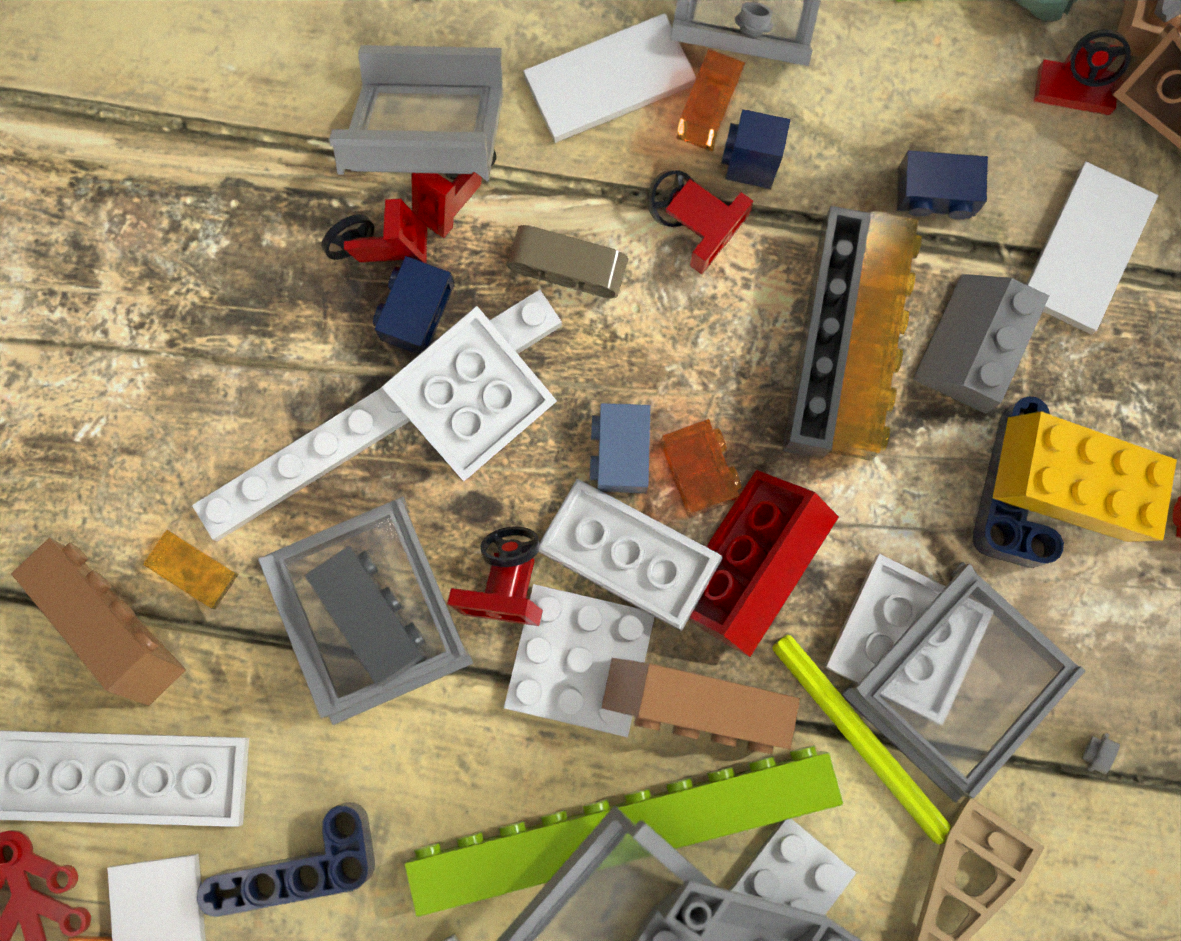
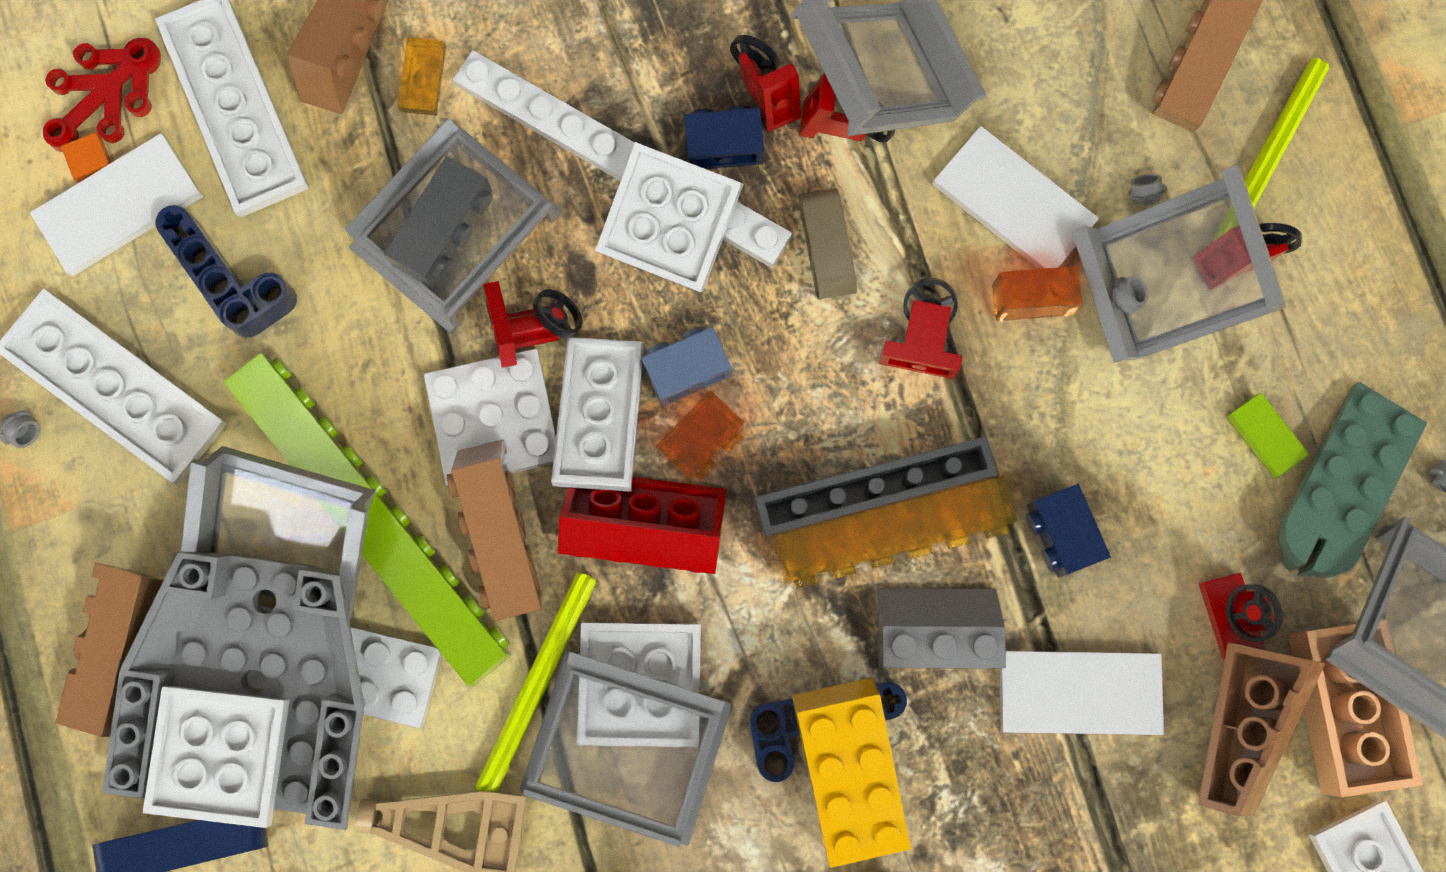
camera: 65 degrees right, 0 degrees up
(755, 148) = (1008, 349): dark blue brick -> none

